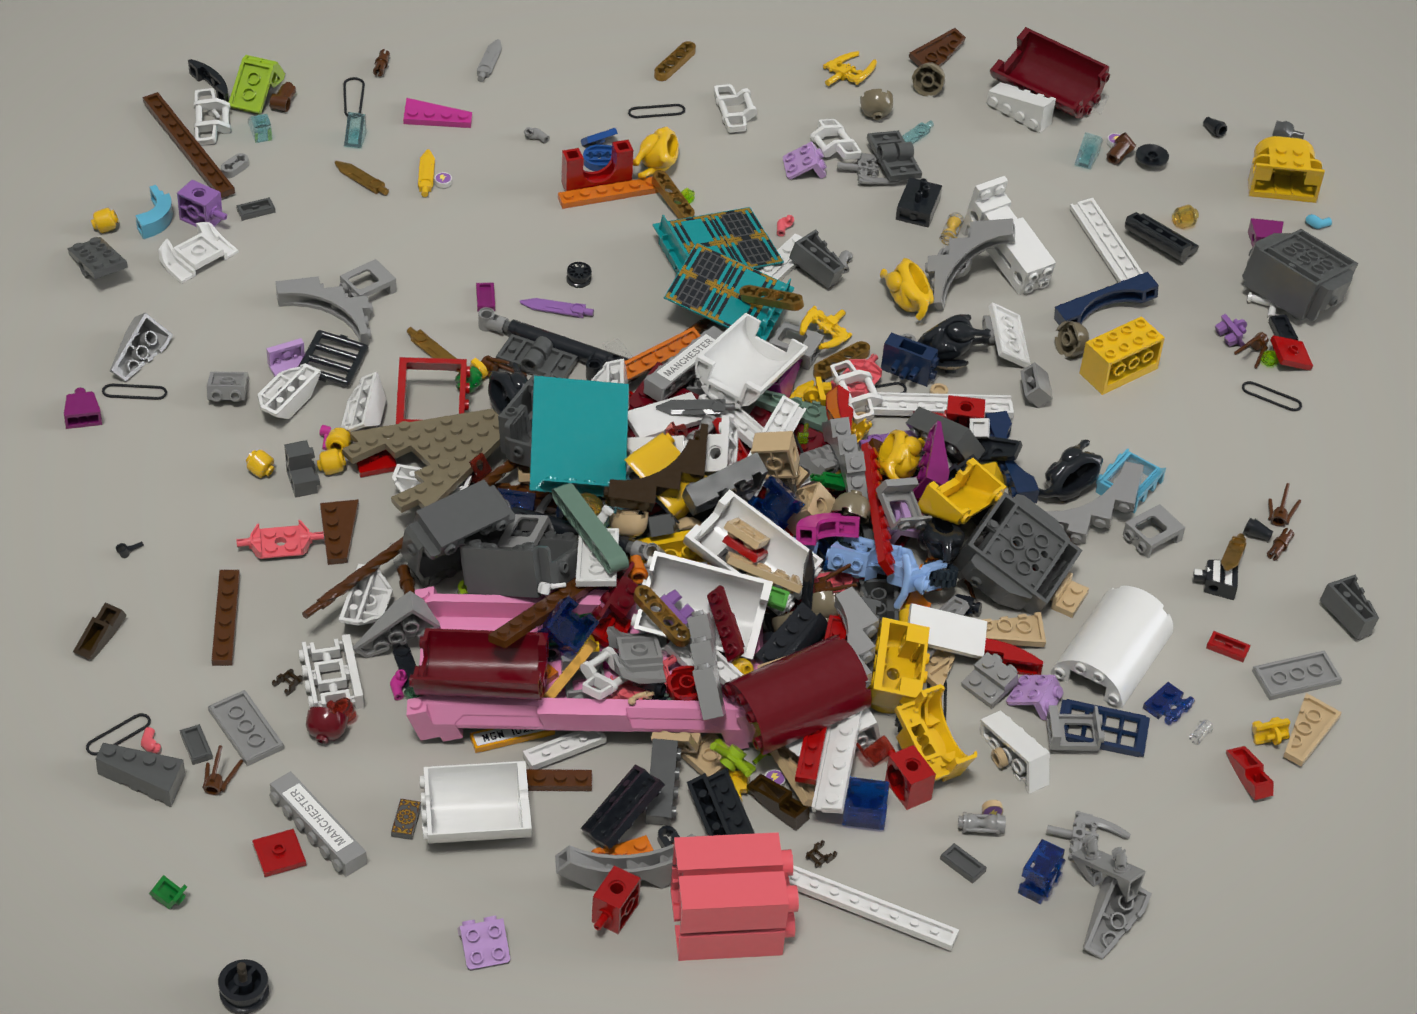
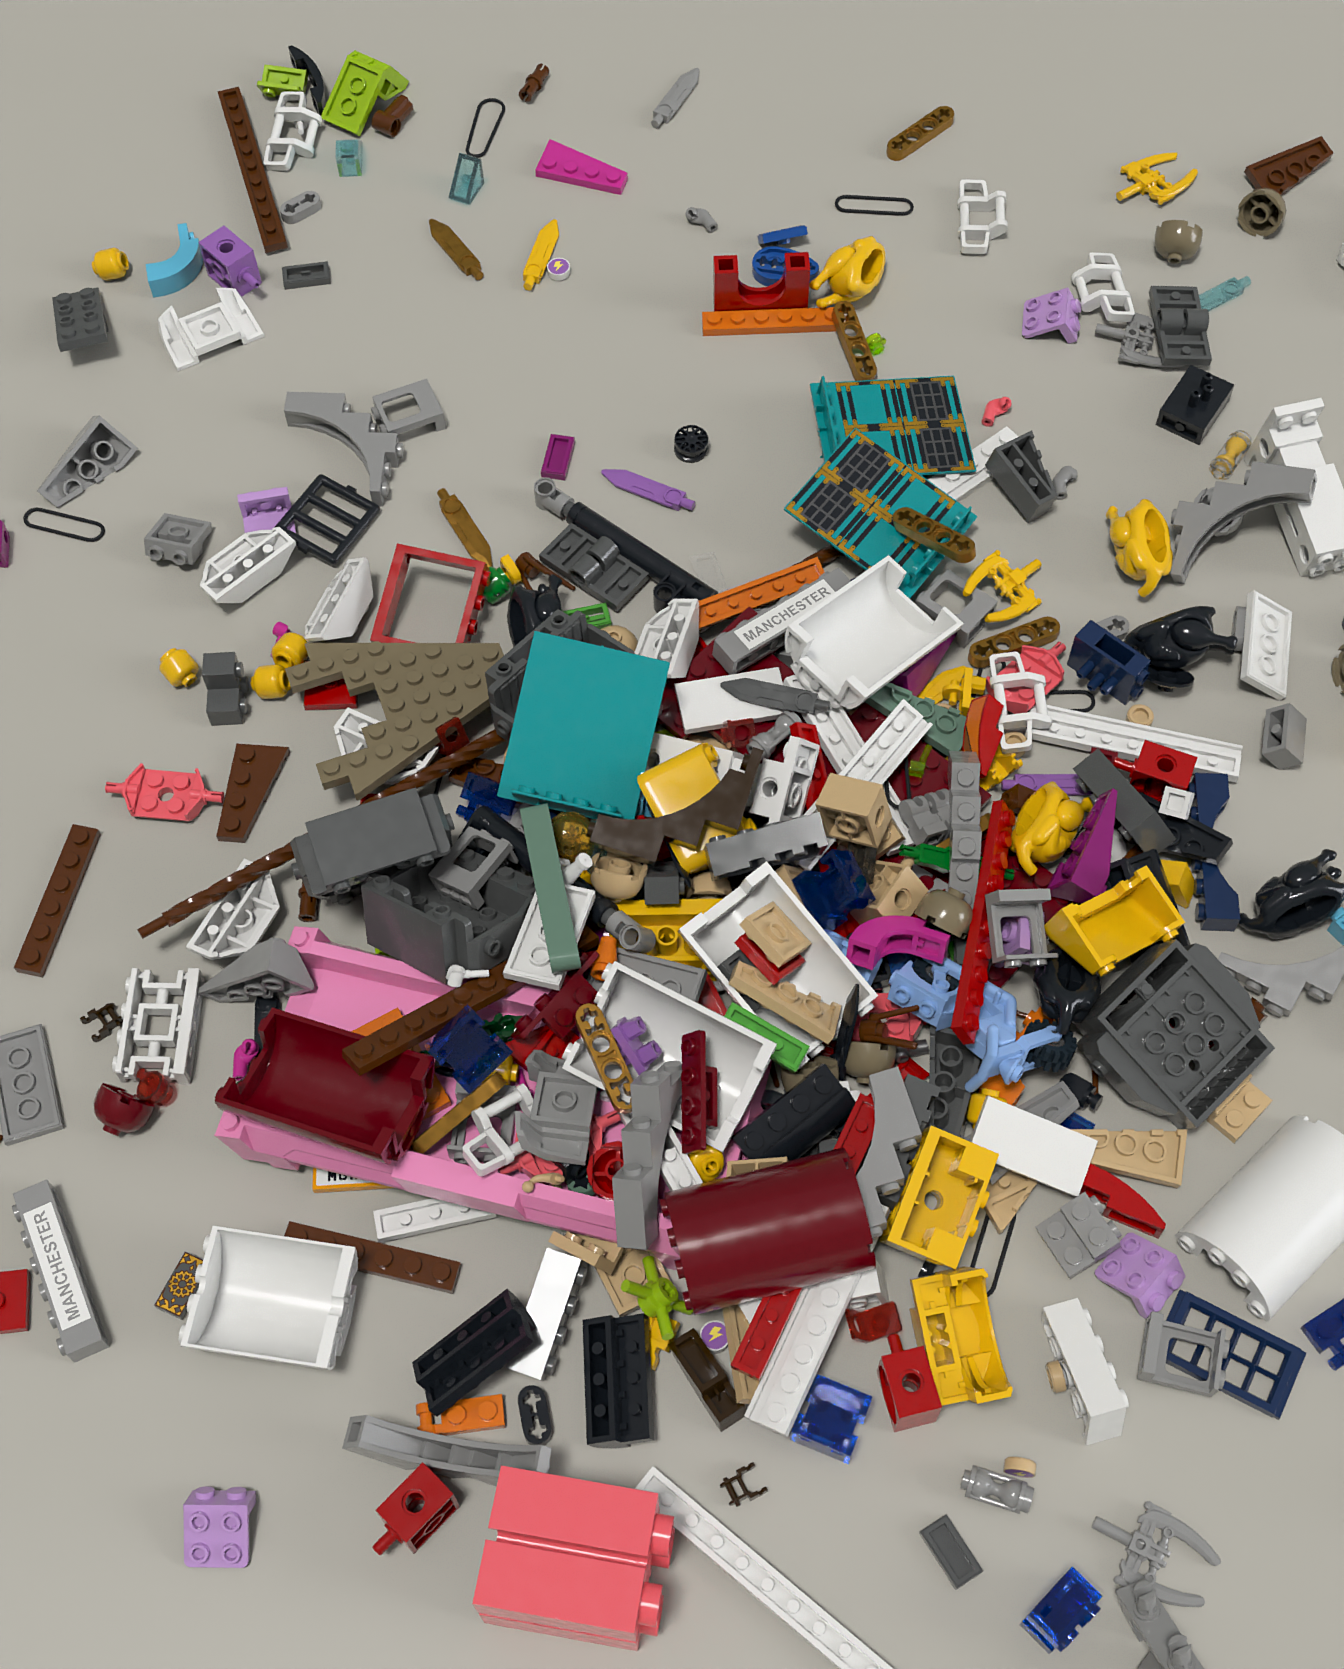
camera: 20 degrees right, 15 degrees up
(187, 84) = (282, 79): none -> lime bracket

